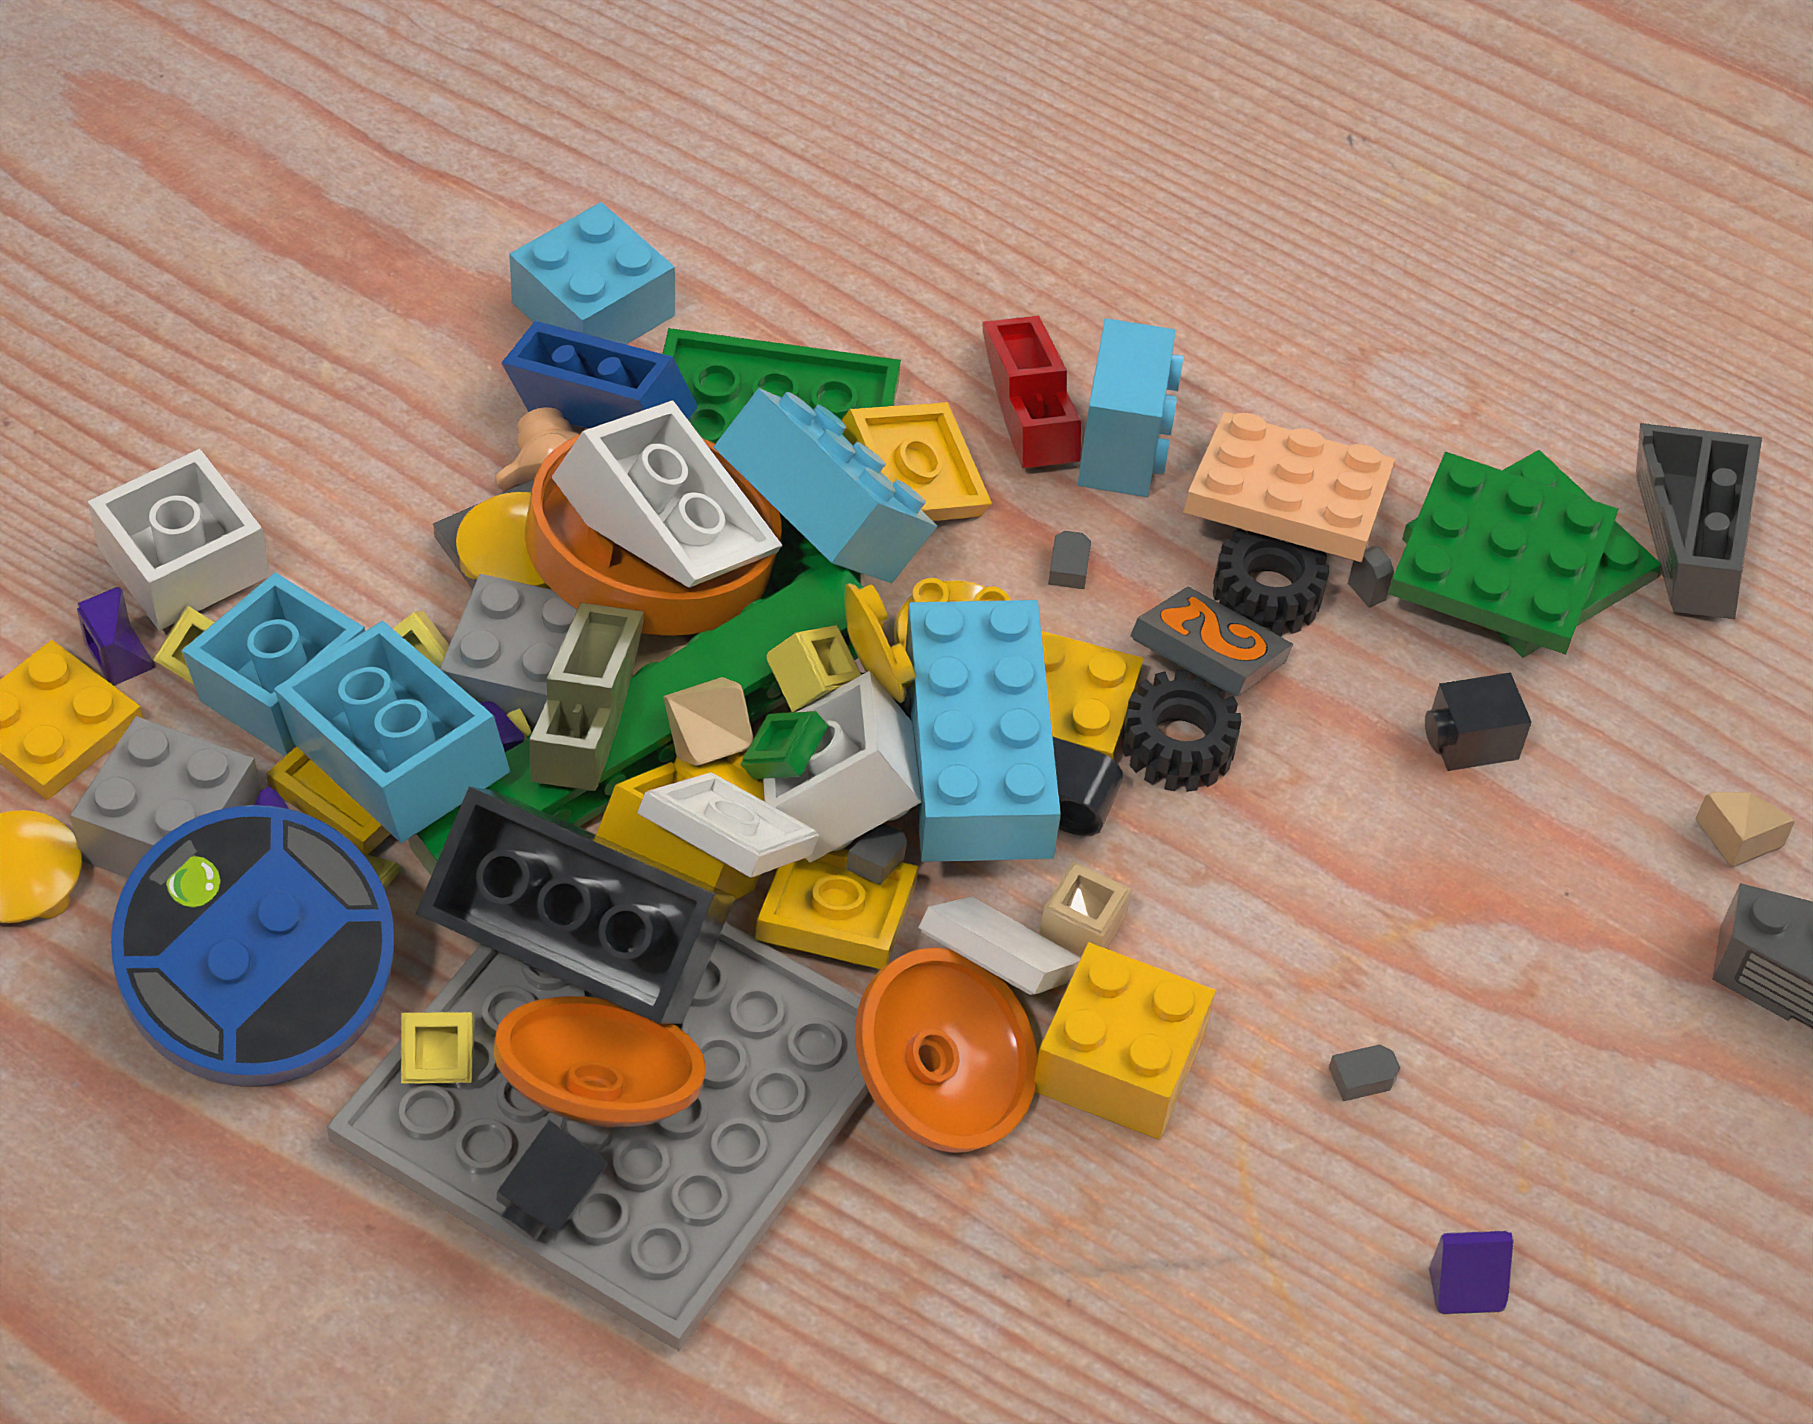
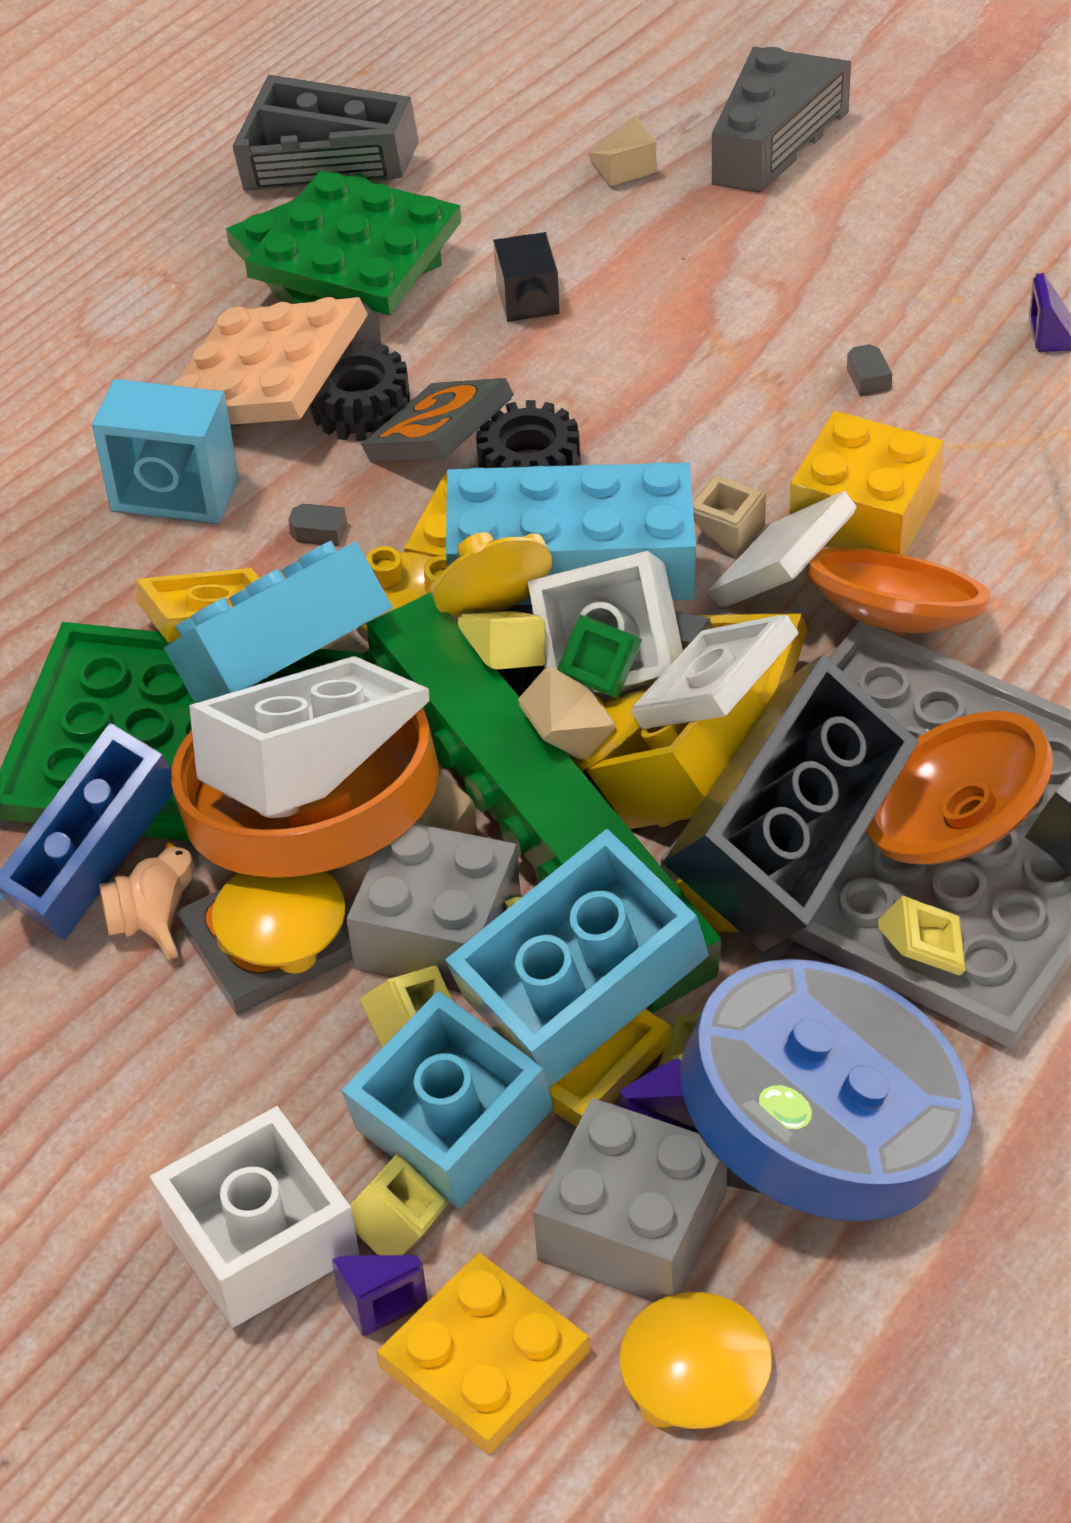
camera: 80 degrees left, 5 degrees down
(585, 697) = (533, 800): olive slope -> none
(1033, 392) = (109, 535): red slope -> none

